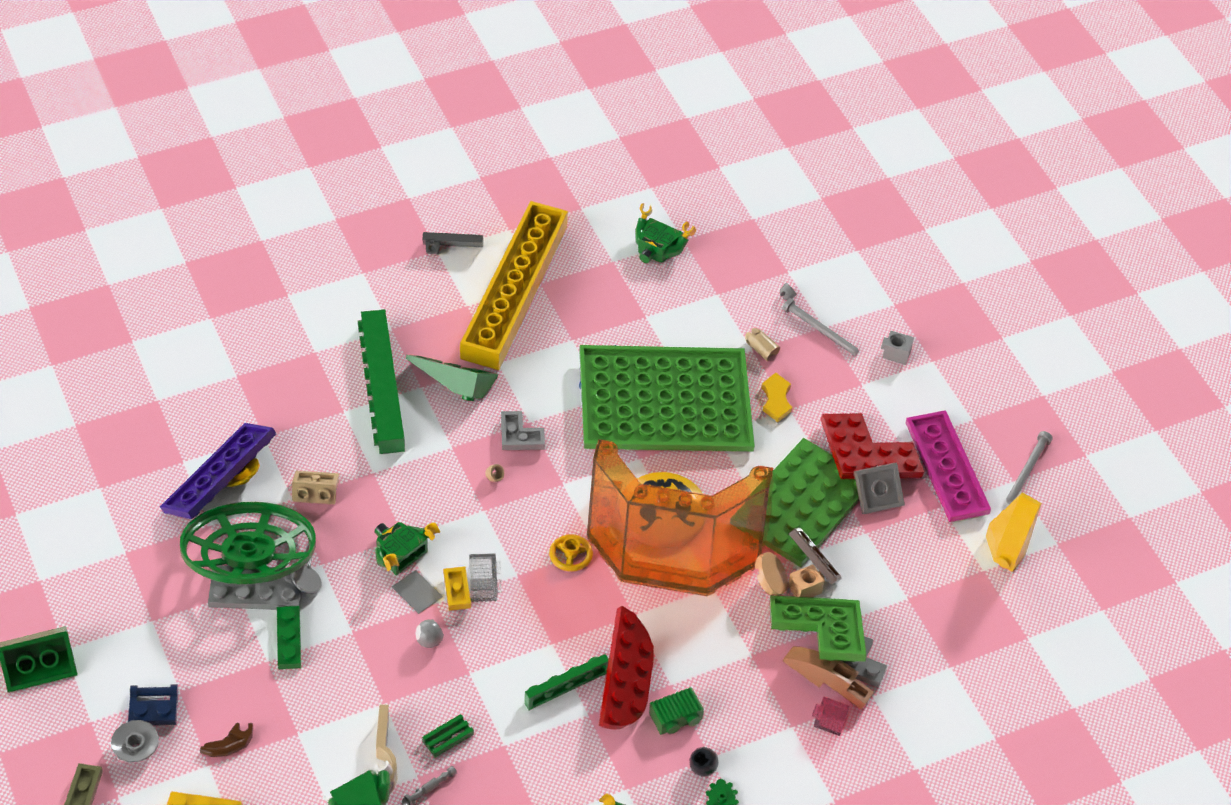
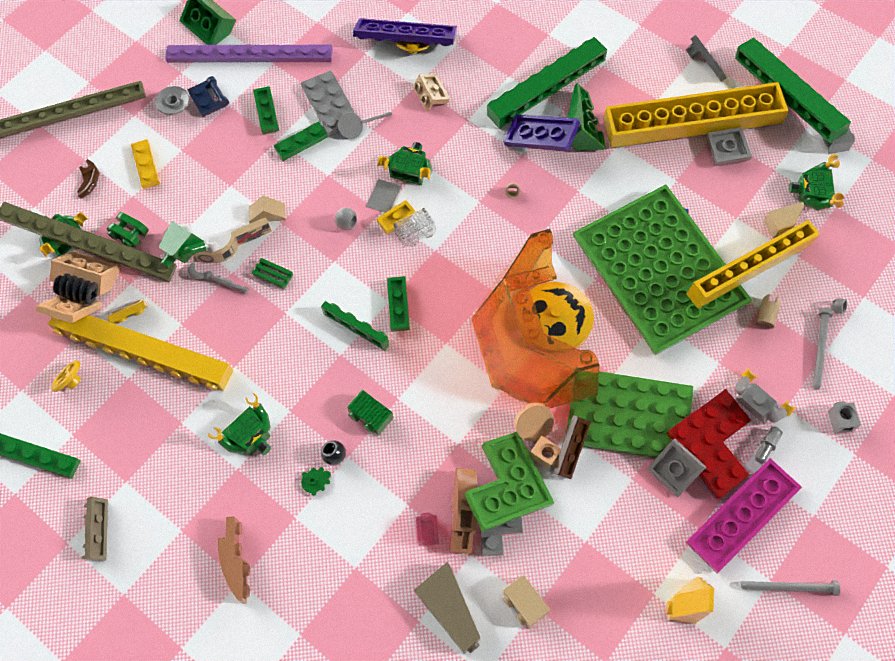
camera: 70 degrees right, 15 degrees up
(116, 642) = (248, 53): none -> medium lavender plate
(221, 651) = (266, 110): none -> green plate
(230, 744) = (204, 154): reddish brown piece -> none
(248, 548) = (360, 78): green dish -> none
(361, 709) = (267, 207): none -> tan slope
(448, 412) = (542, 132): none -> dark purple plate
(519, 438) = (556, 186): light grey plate -> none
(561, 194) = (796, 92): none -> green brick
(564, 633) = (398, 304): none -> green plate
(566, 279) = (728, 146): none -> light grey plate
(571, 547) = (475, 266): yellow piece -> none
(617, 197) = (841, 144): none -> light grey brick
(627, 672) = (382, 361): red plate -> none
(677, 282) = (783, 219): none -> tan slope
(714, 325) = (752, 264): none -> yellow brick
(776, 390) = (715, 351): yellow tile -> none
(847, 395) = (759, 401): none -> light grey torso
(892, 413) = (768, 444): none -> light grey axle
(919, 732) = (446, 603): none -> dark tan slope
(944, 668) = (525, 601): none -> tan brick

